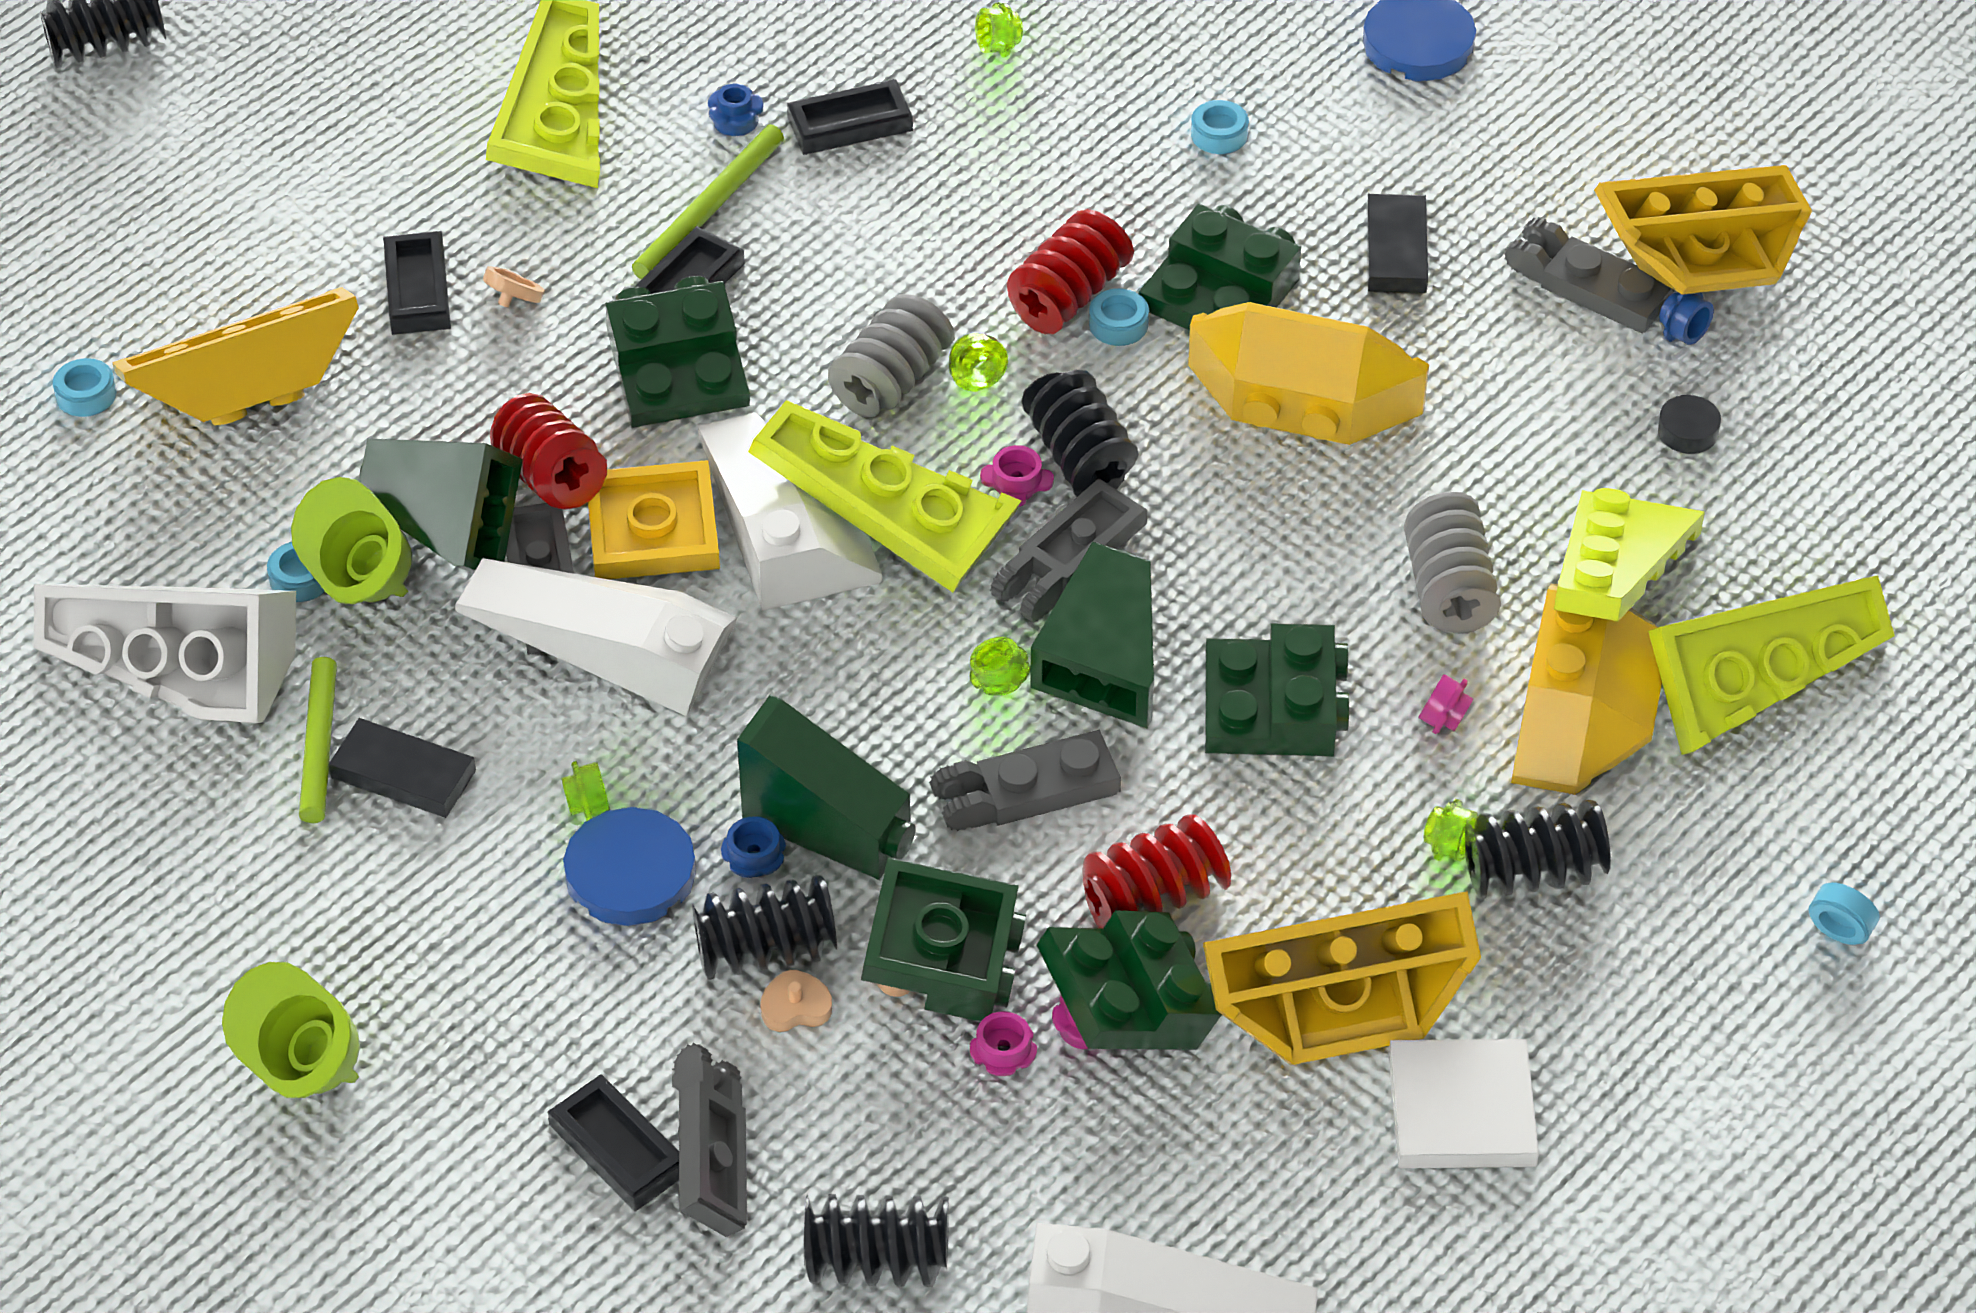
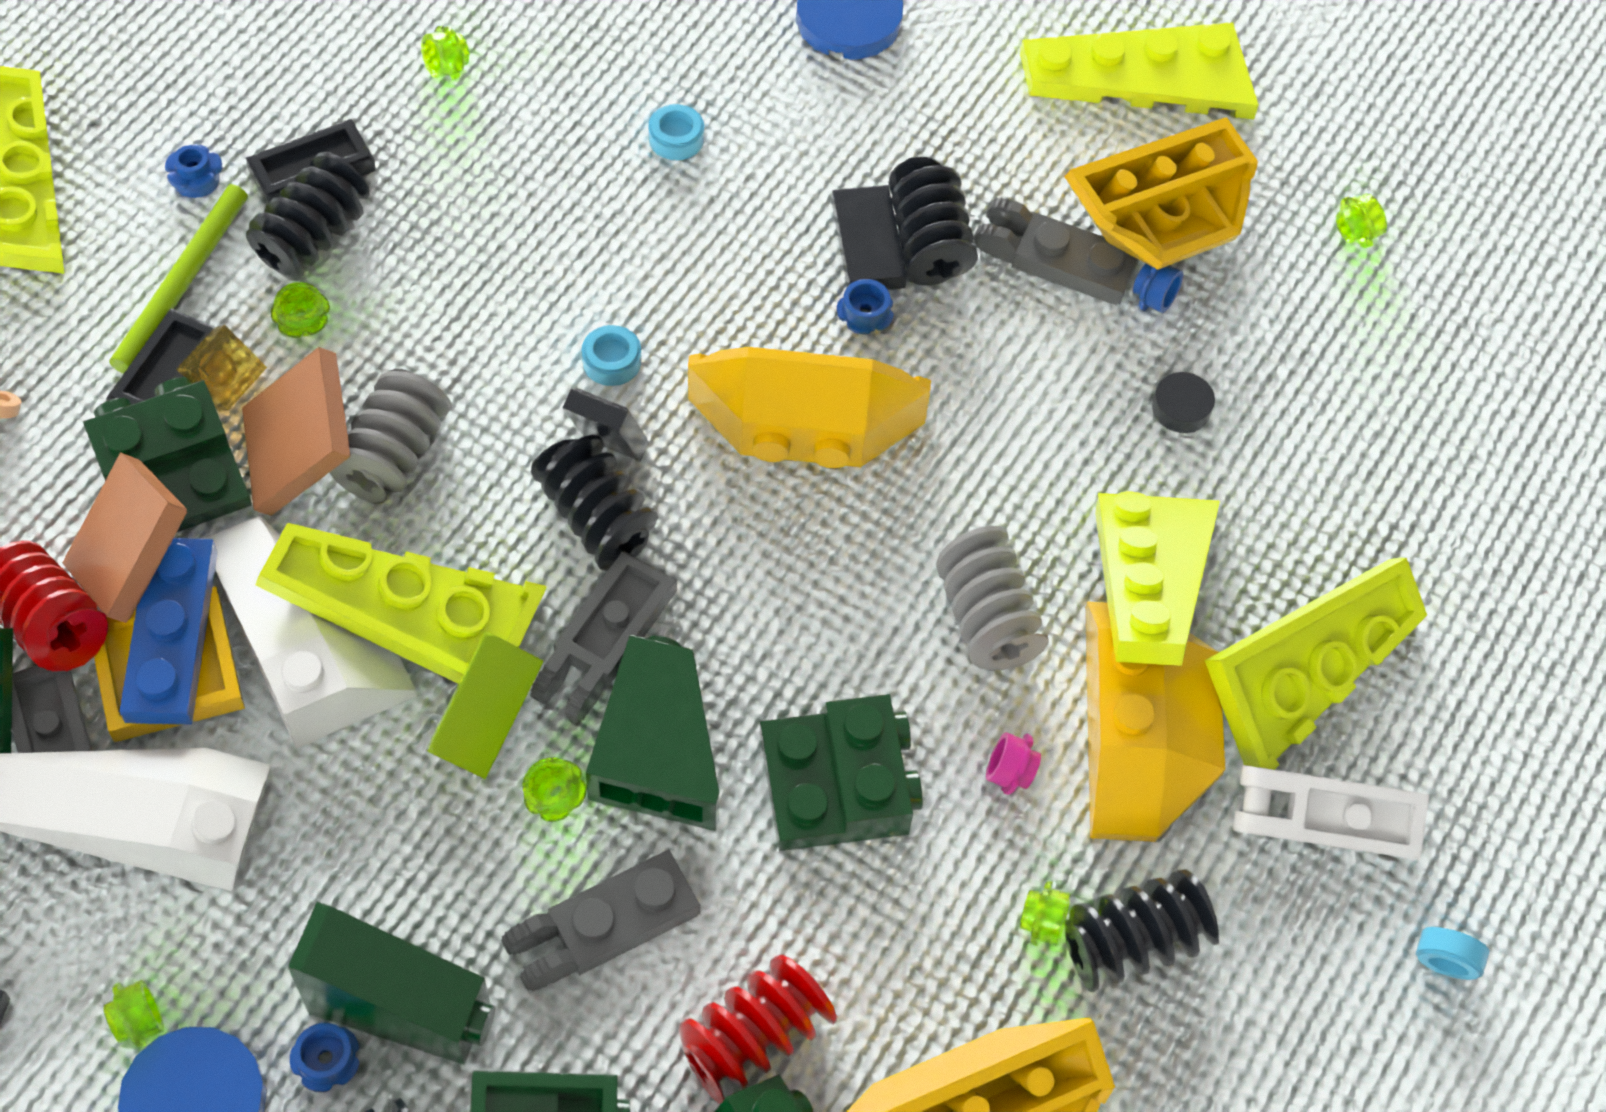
camera: 15 degrees left, 10 degrees up
(633, 401) = (124, 538): none -> nougat tile
(661, 487) = (170, 636): none -> blue plate
(745, 278) = (224, 365): none -> clear yellow plate
(802, 338) = (295, 431): none -> nougat tile
(820, 241) = (296, 299): none -> clear neon green plate
(841, 157) = (307, 215): none -> black piece
(945, 586) = (484, 705): none -> lime slope
(971, 351) = (478, 428): clear neon green plate -> none
(1017, 473) = (537, 539): dark pink plate -> none
(1068, 270) = (555, 315): red piece -> none
(1105, 359) = (608, 420): none -> black tile
(1220, 264) = (705, 294): dark green plate -> none
(1381, 301) = (866, 295): none -> blue plate
(1462, 230) = (931, 221): none -> black piece
(1737, 117) = (1167, 65): none -> neon yellow wing
(1752, 783) = (1334, 813): none -> white plate
(1915, 281) = (1361, 219): none -> clear neon green plate

